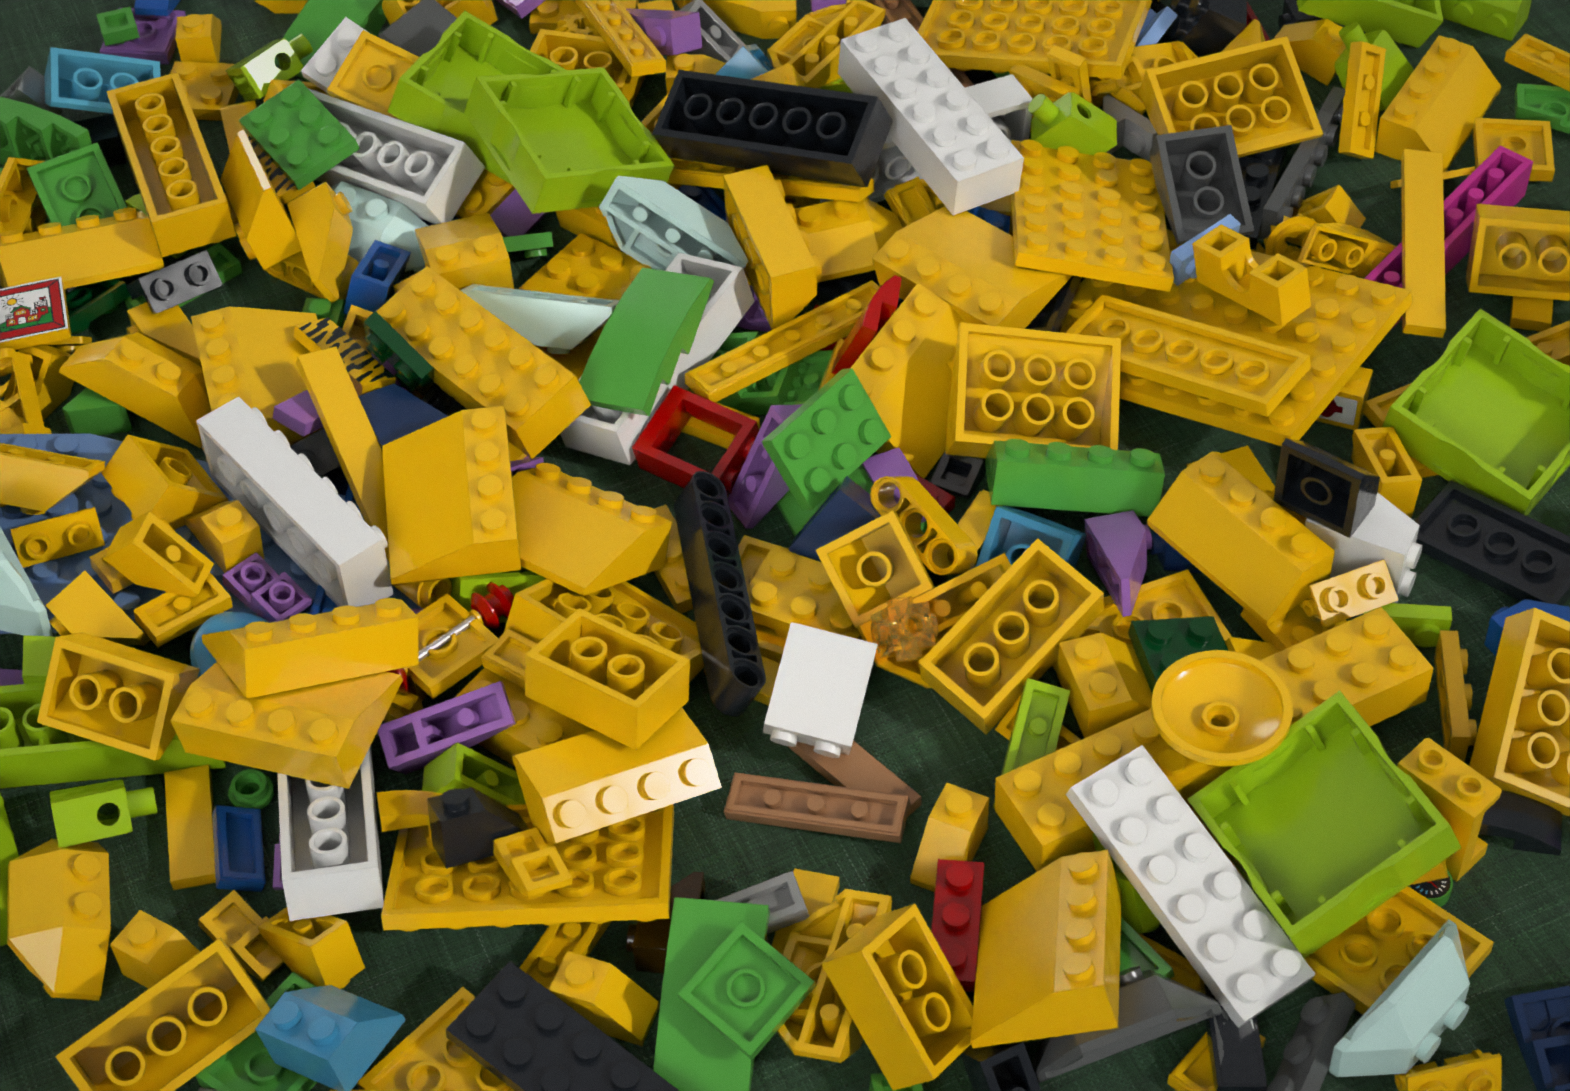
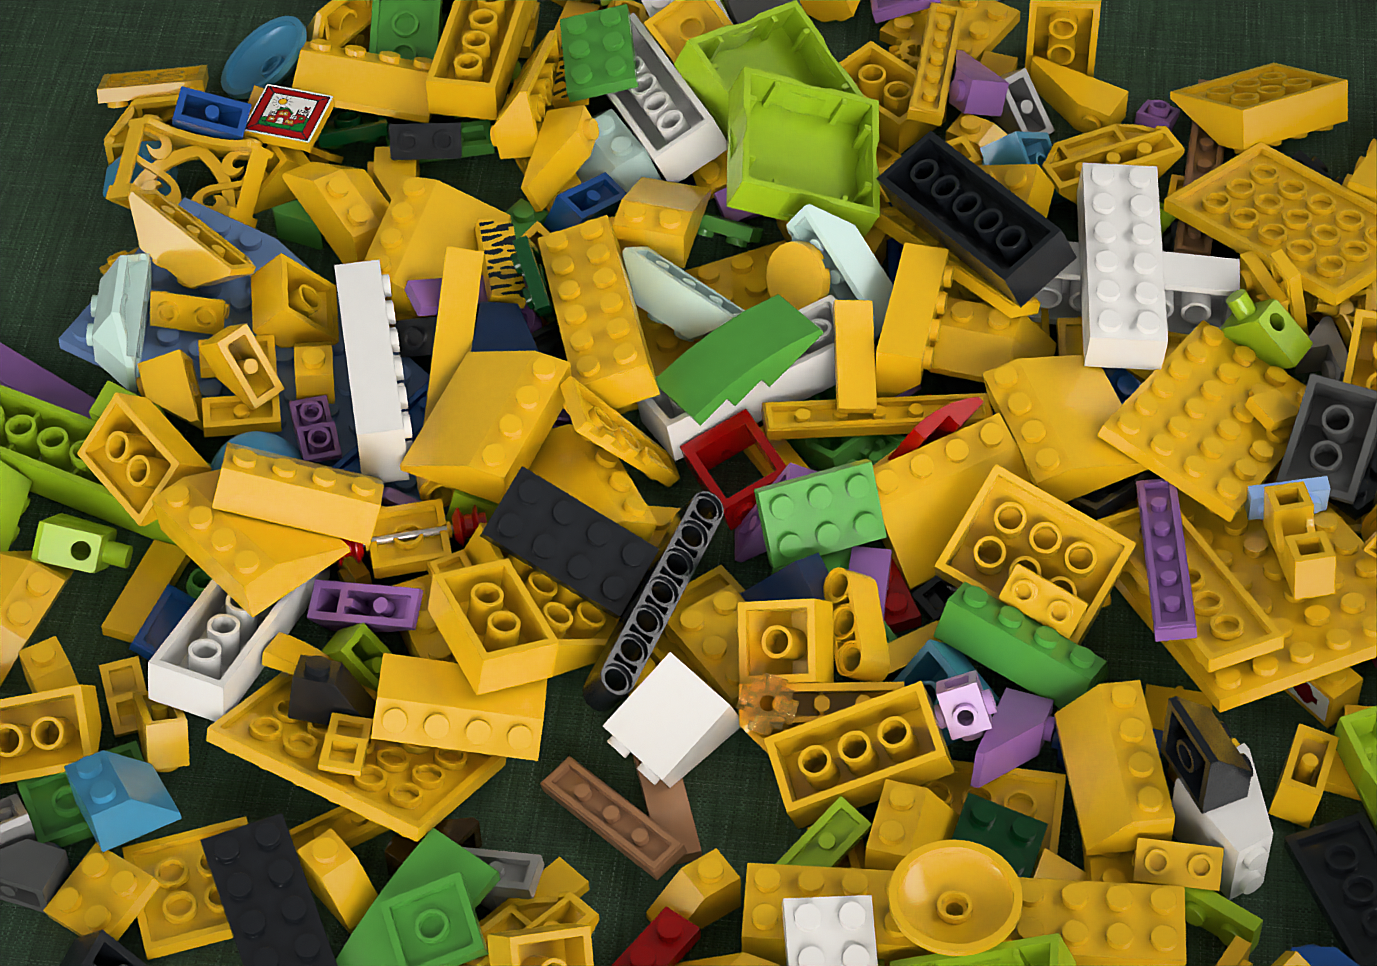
camera: 30 degrees right, 0 degrees up
(568, 454) = (615, 433): none -> yellow wing
(611, 572) = (569, 542): none -> black plate
(630, 245) = (798, 274): none -> yellow tile
(747, 293) = (854, 356): none -> yellow tile
(1076, 423) = (1043, 600): none -> yellow hinge
(1080, 543) = (964, 706): none -> lavender brick
(1131, 185) = (1272, 409): none -> yellow tile
(1154, 343) = (1166, 561): none -> medium lavender tile

